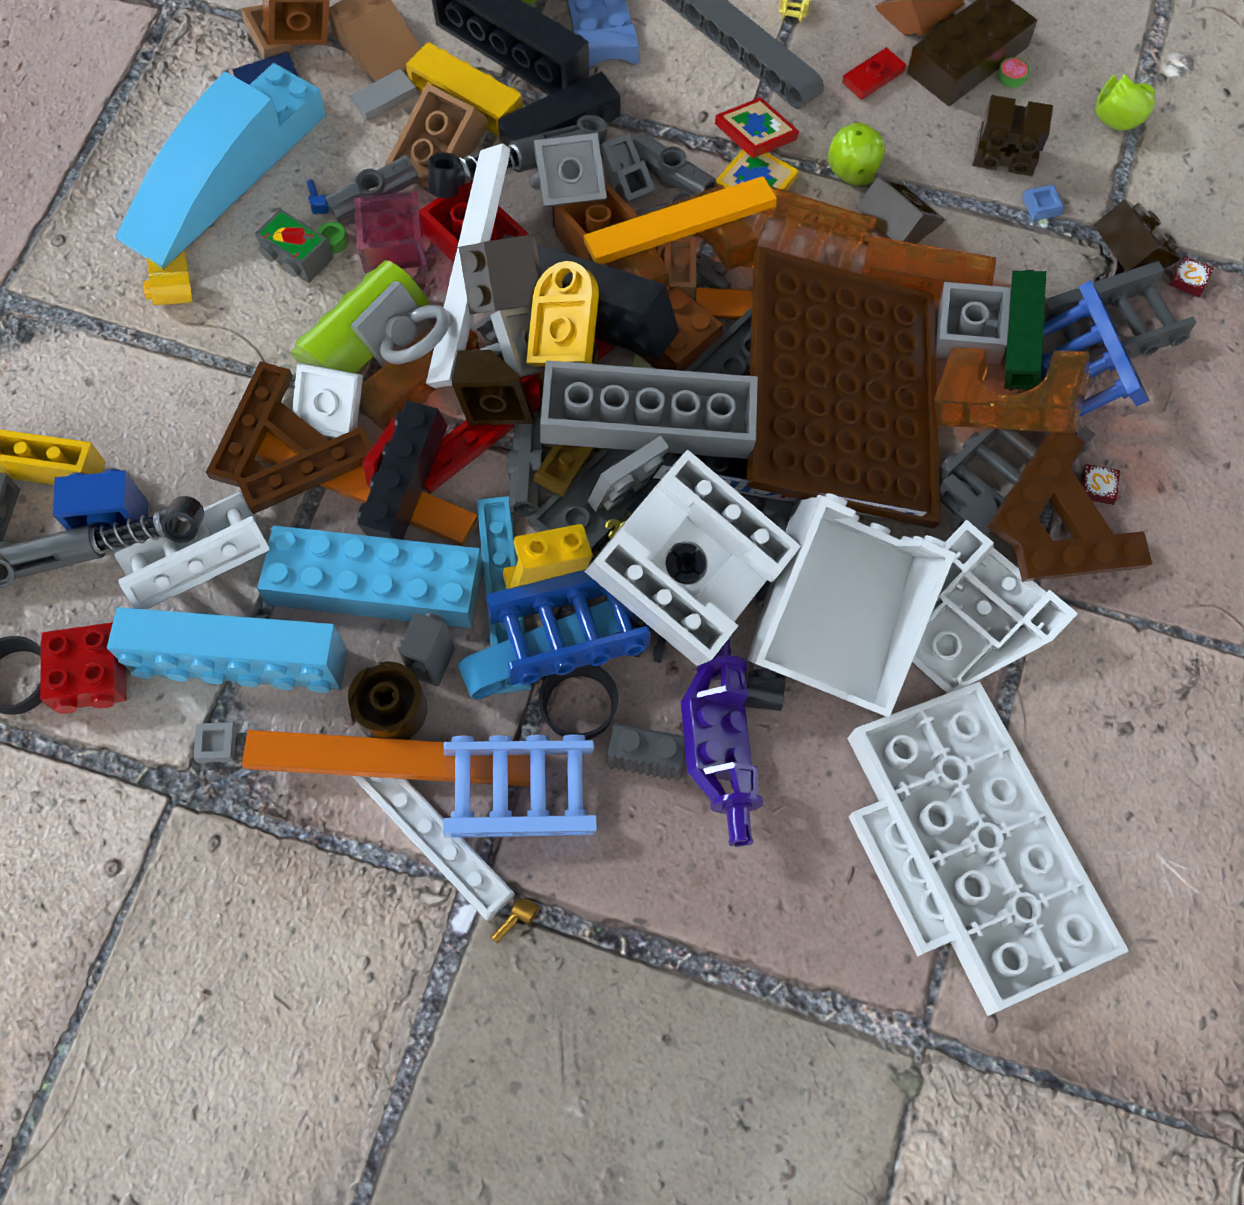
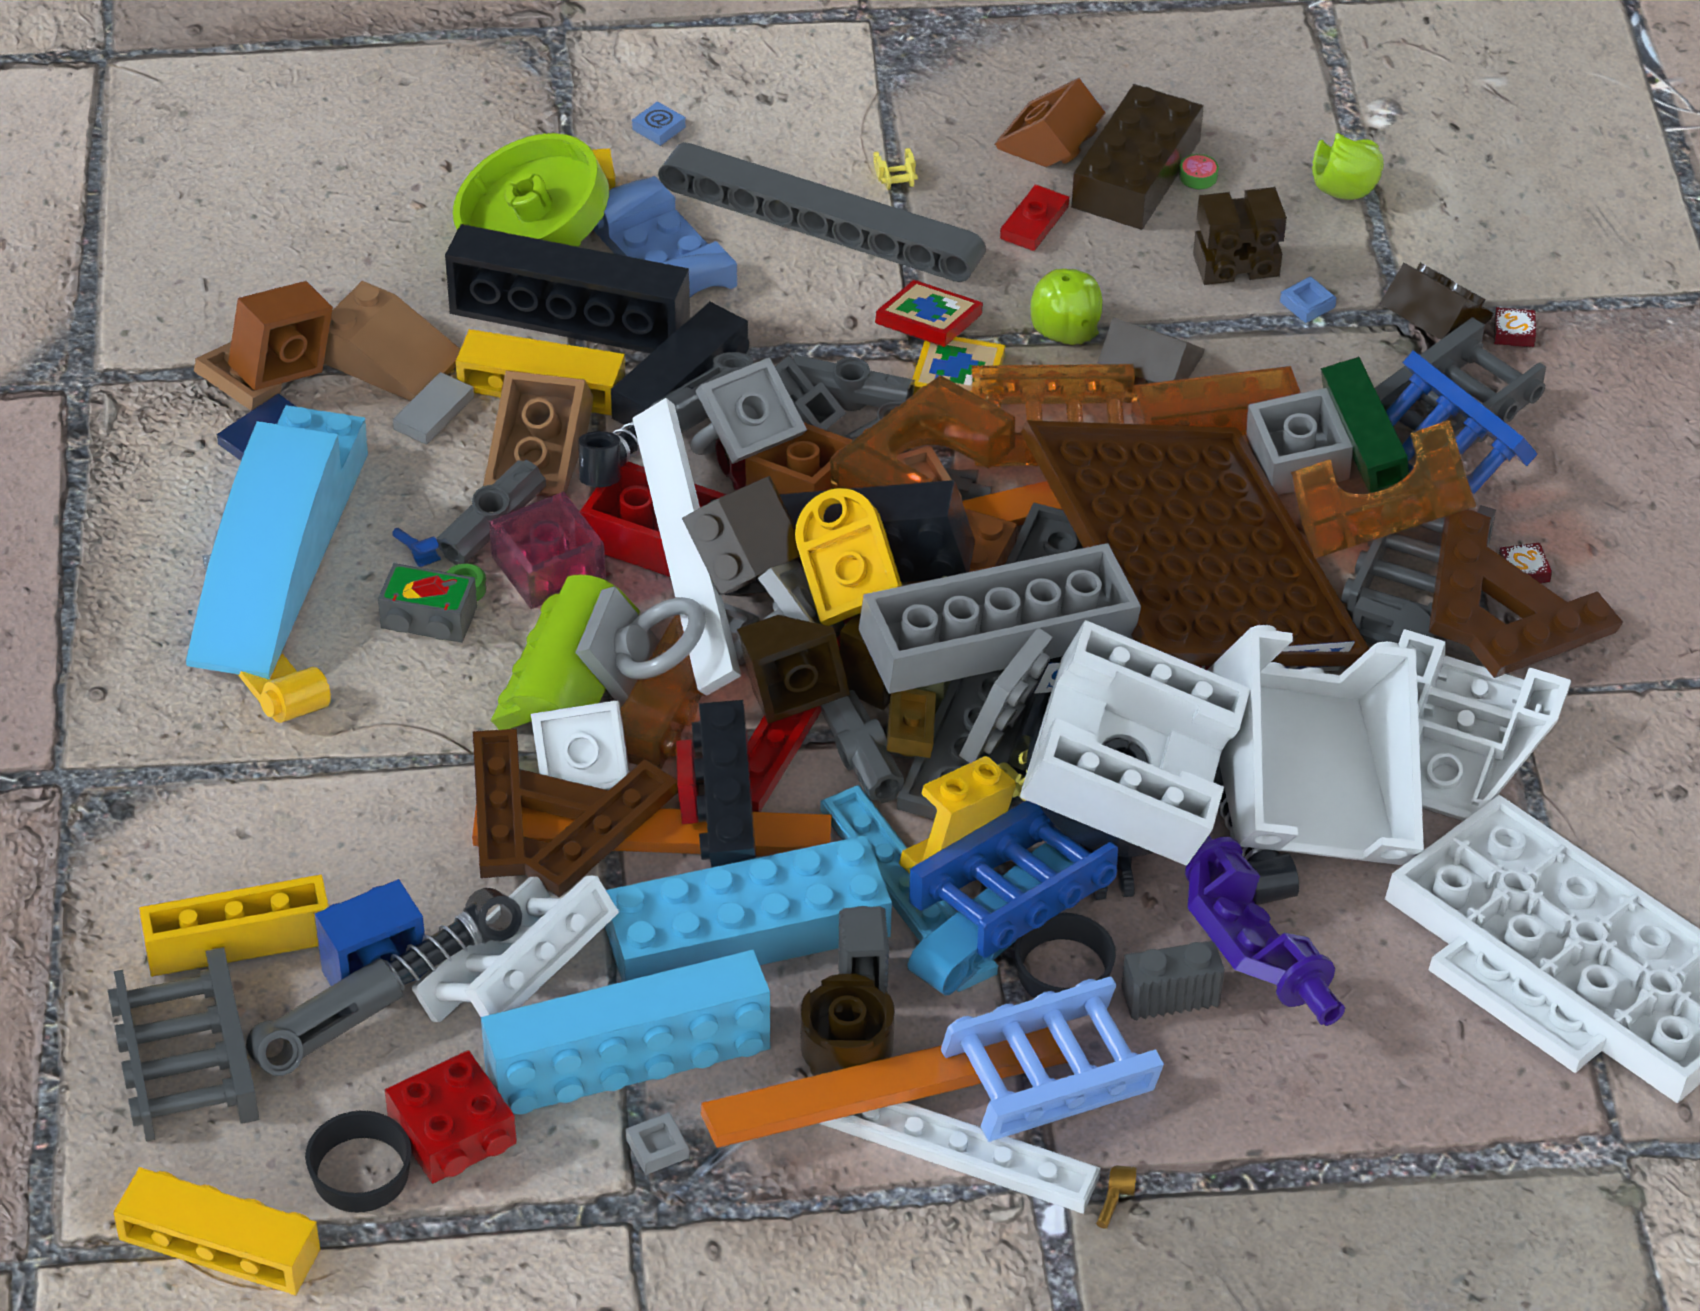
camera: 25 degrees left, 20 degrees down
(680, 220) = (916, 423): light orange tile -> none

